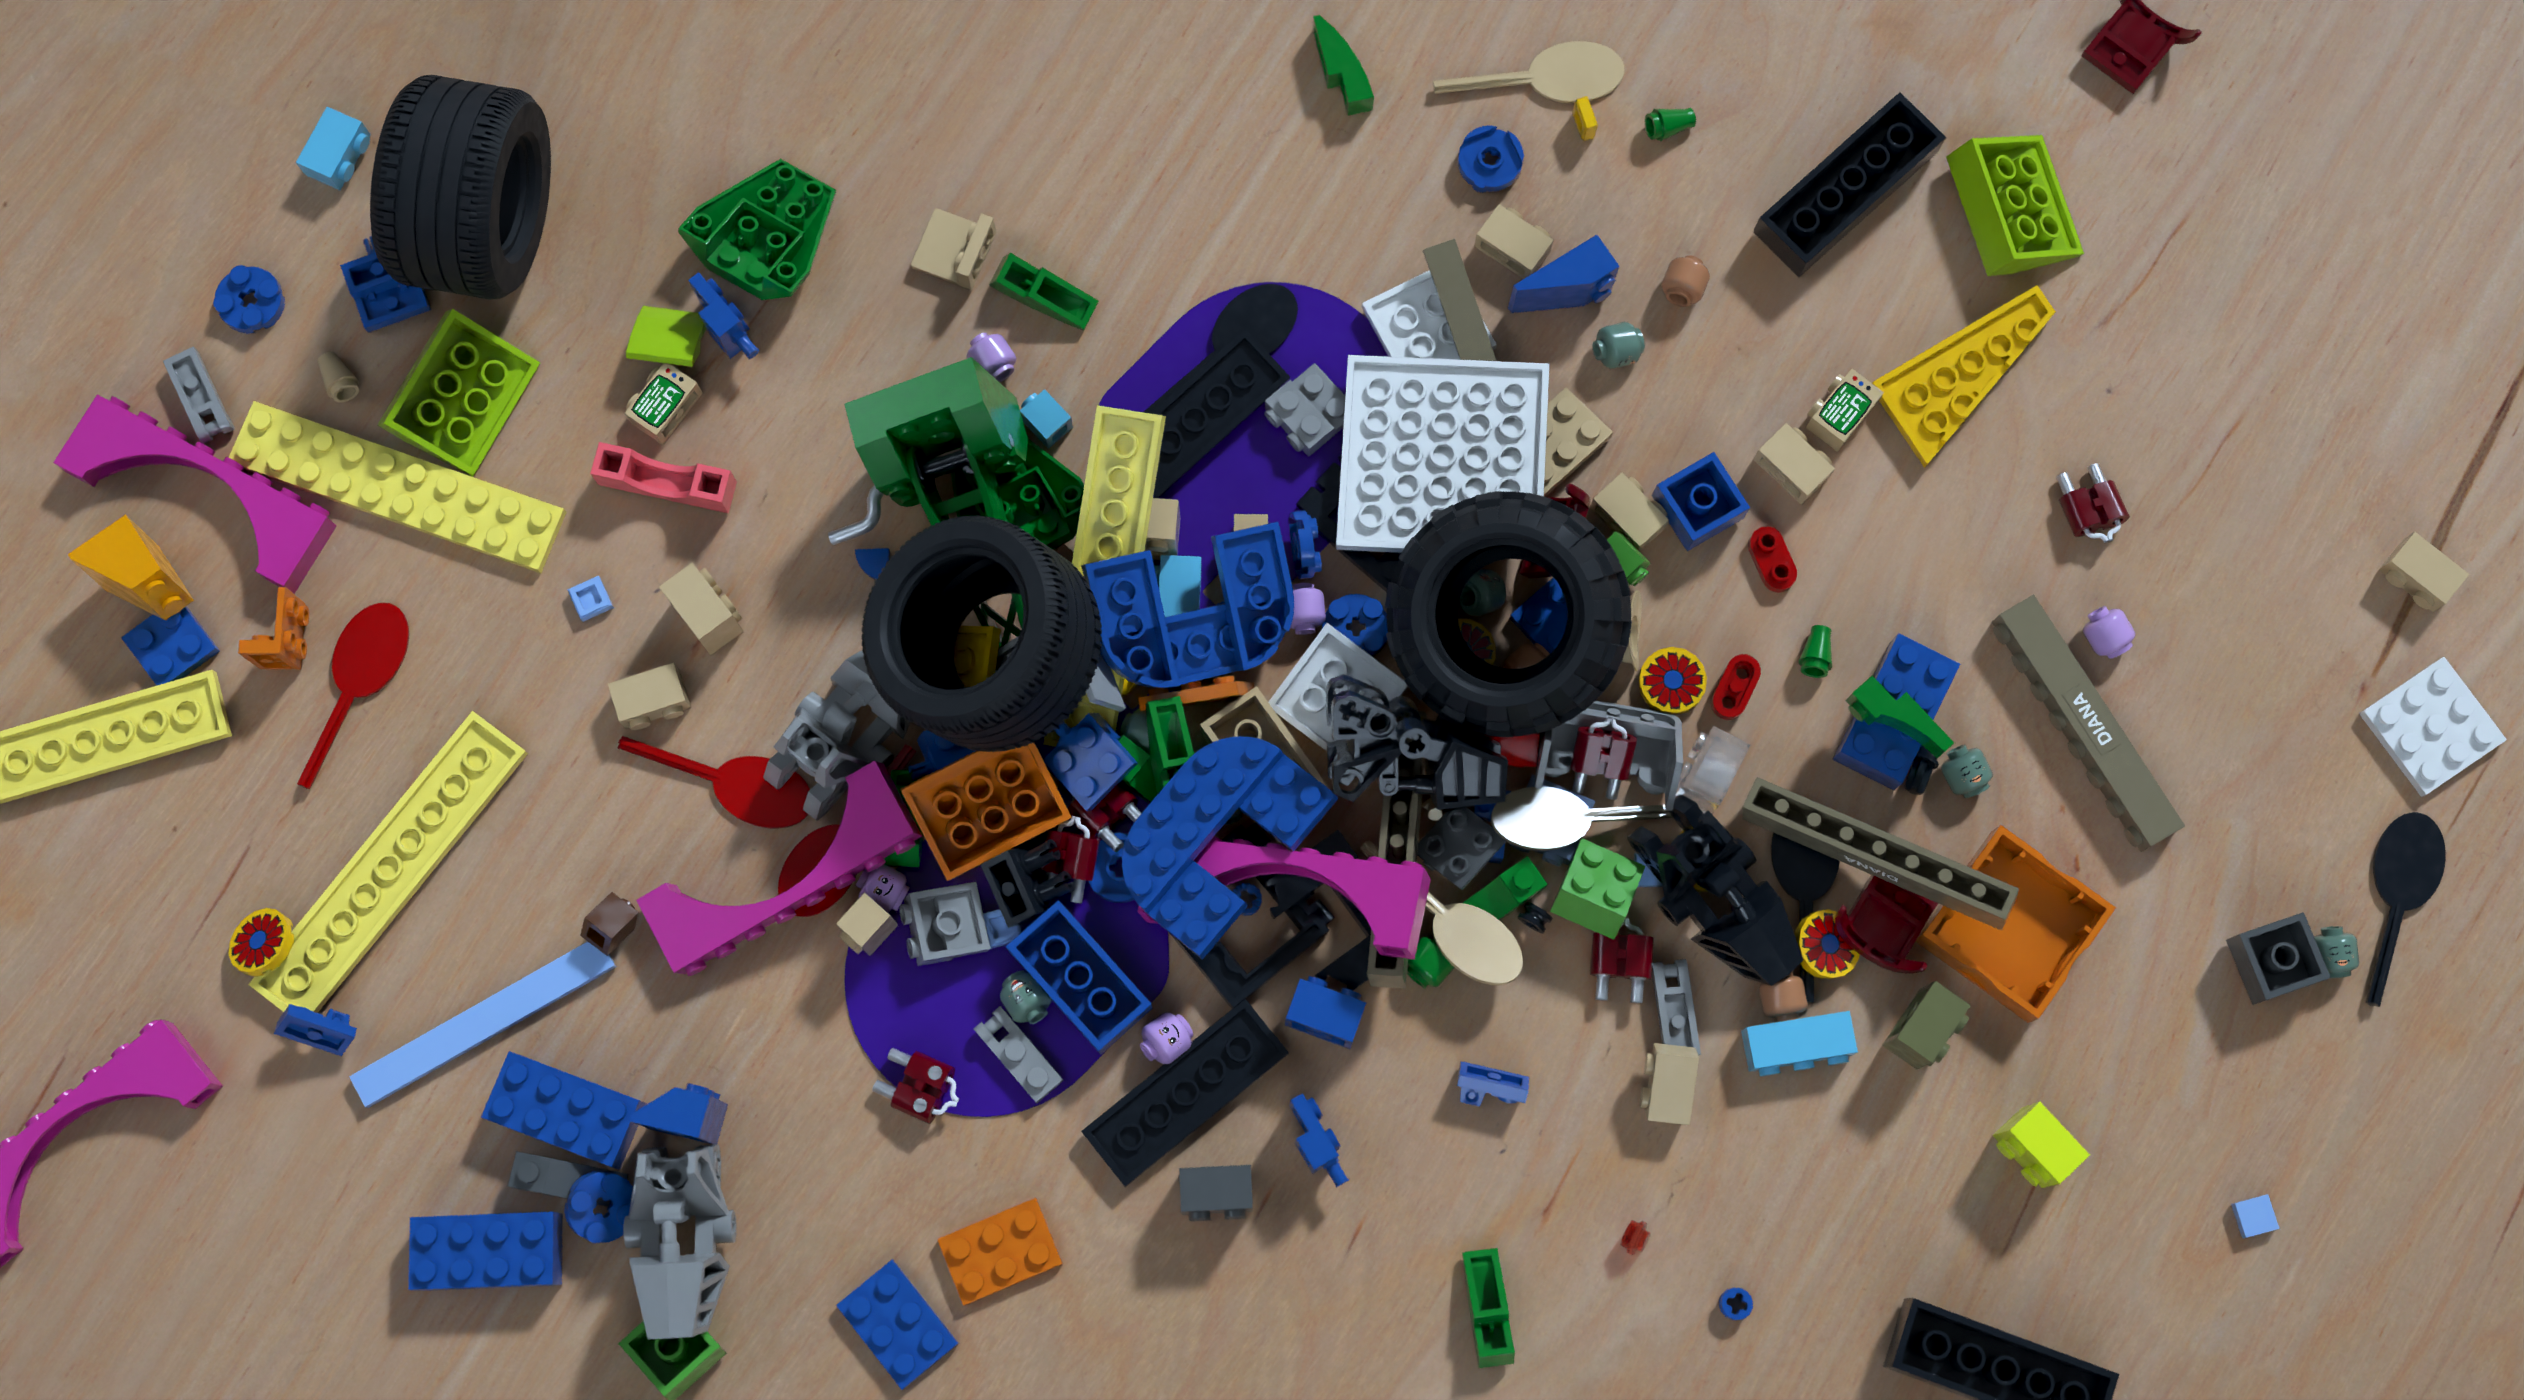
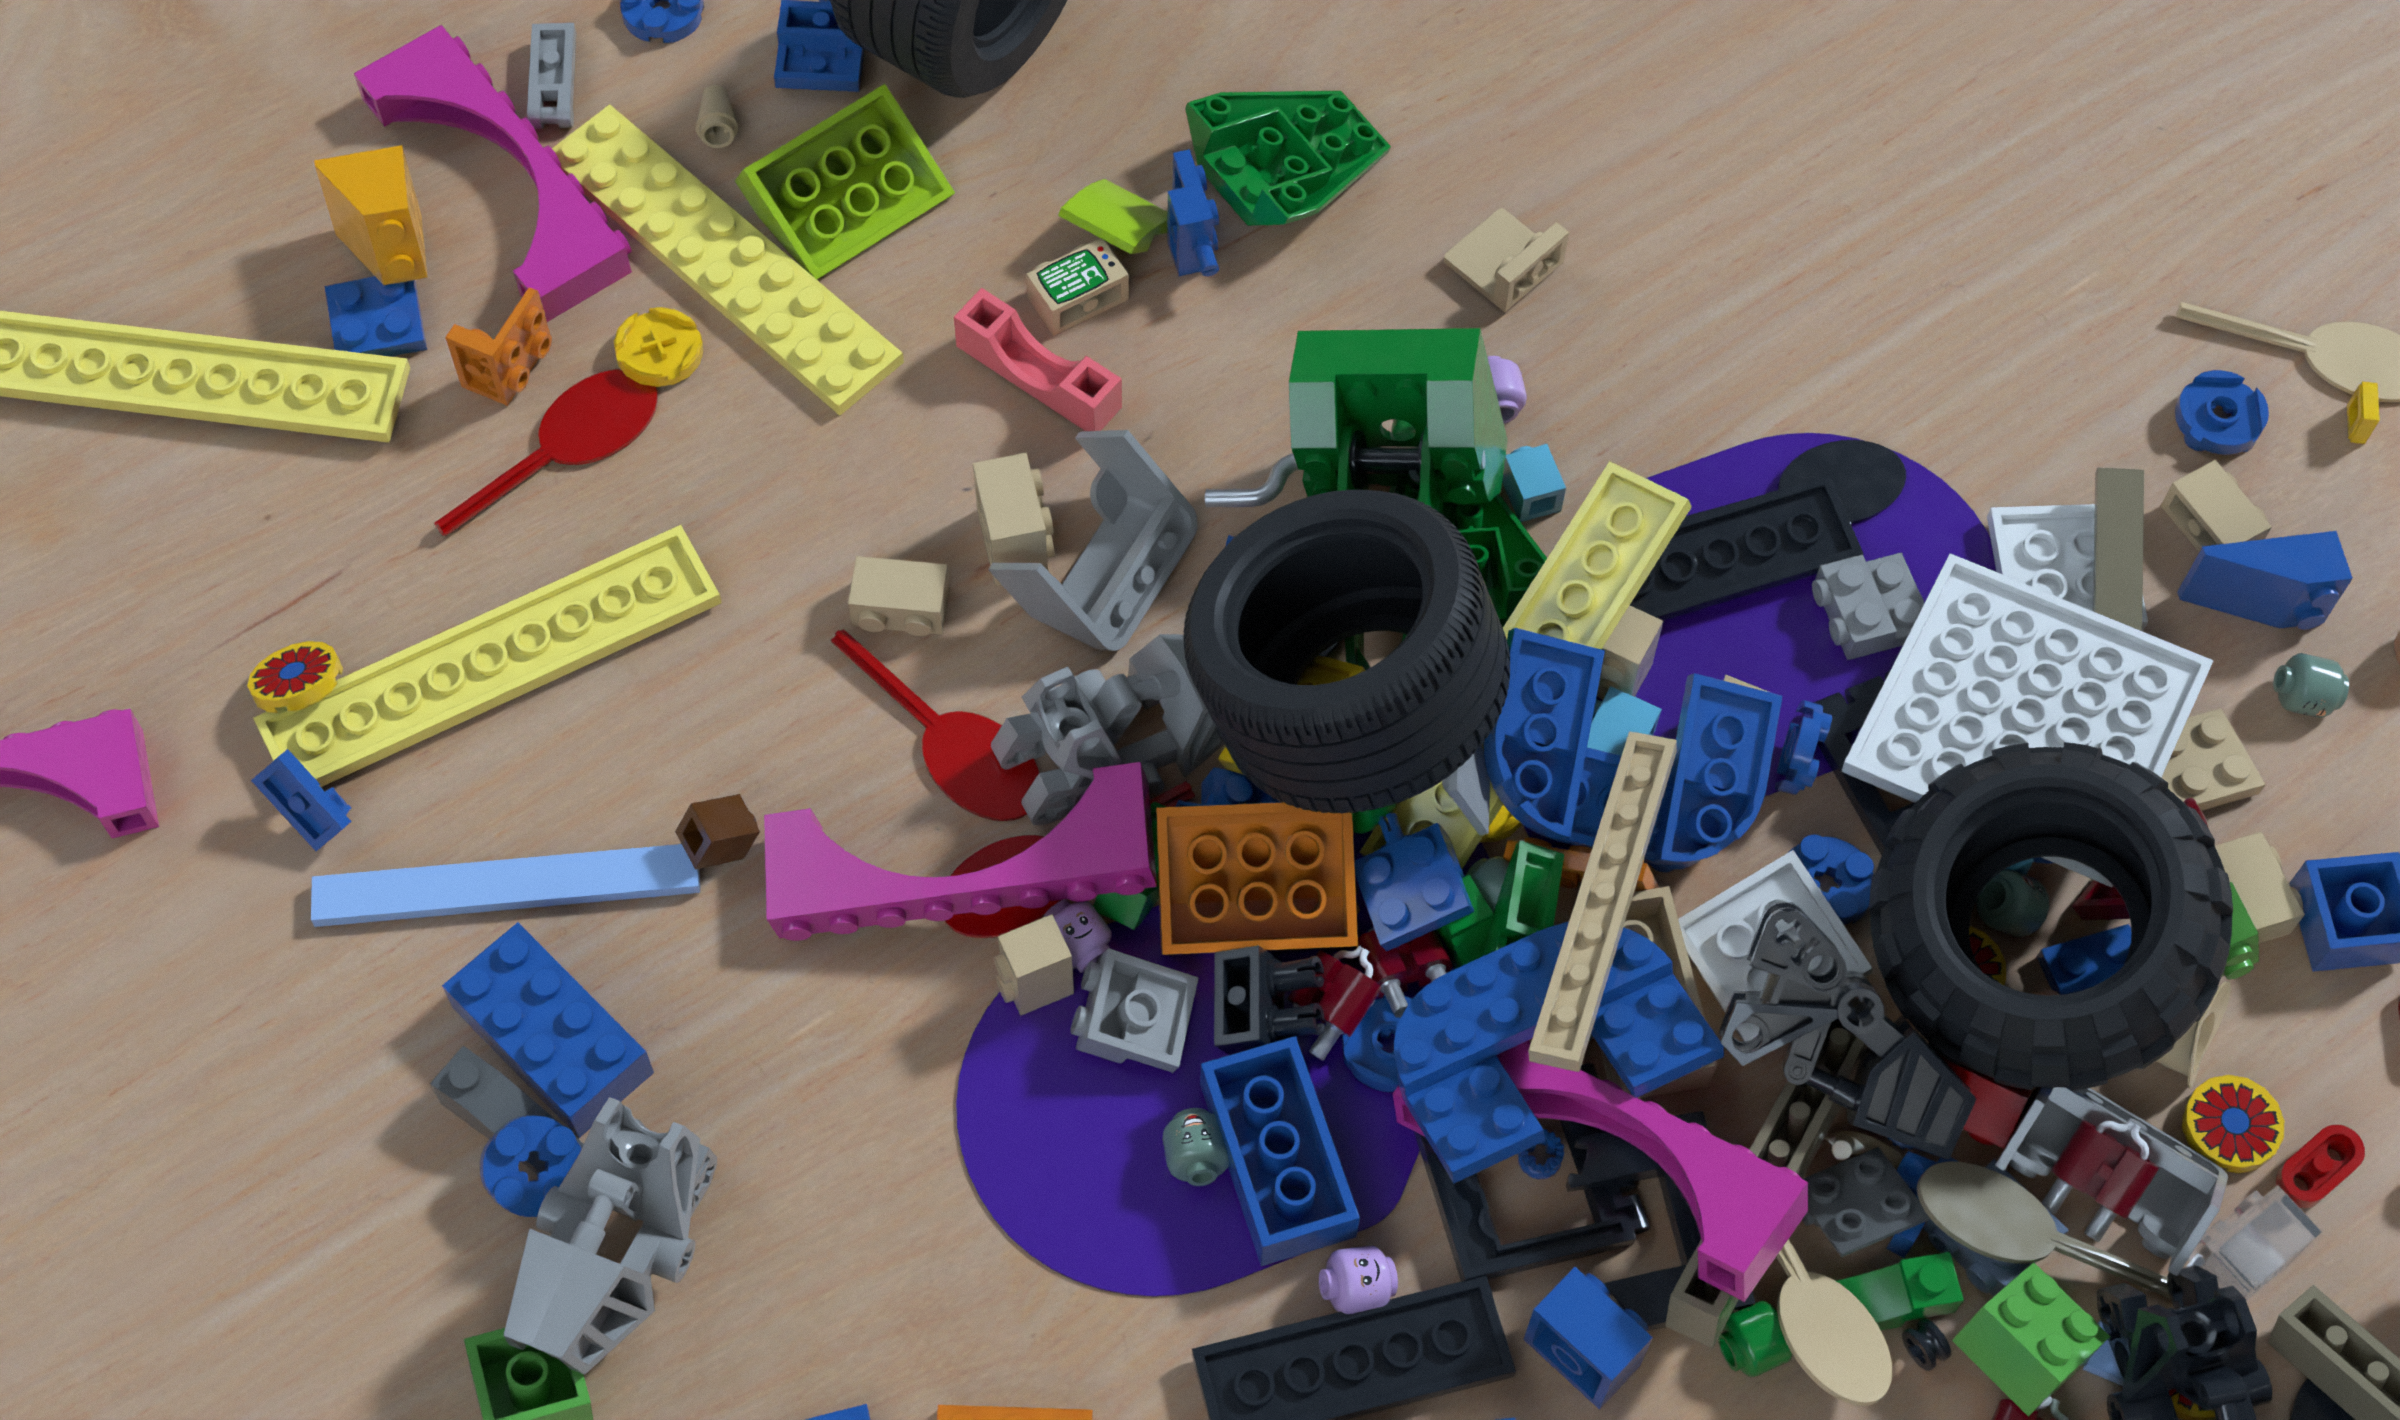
camera: 25 degrees right, 15 degrees down
(386, 578) = (658, 347): none -> yellow tile
(485, 1251) = (362, 1157): blue brick -> none
(590, 598) = (883, 464): light blue tile -> none
(685, 1113) = (691, 1085): blue slope -> none
(790, 600) = (1126, 559): none -> light grey windscreen
(921, 1087) = (1010, 1200): dark red piece -> none
(997, 929) = (1198, 1049): light blue tile -> none
(1019, 1056) = (1154, 1220): light grey plate -> none
(1043, 291) = (1592, 344): green slope -> none
(1220, 727) = (1602, 903): none -> tan plate
(1308, 608) = (1772, 831): lavender head -> none
(1342, 68) = (2071, 244): green slope -> none

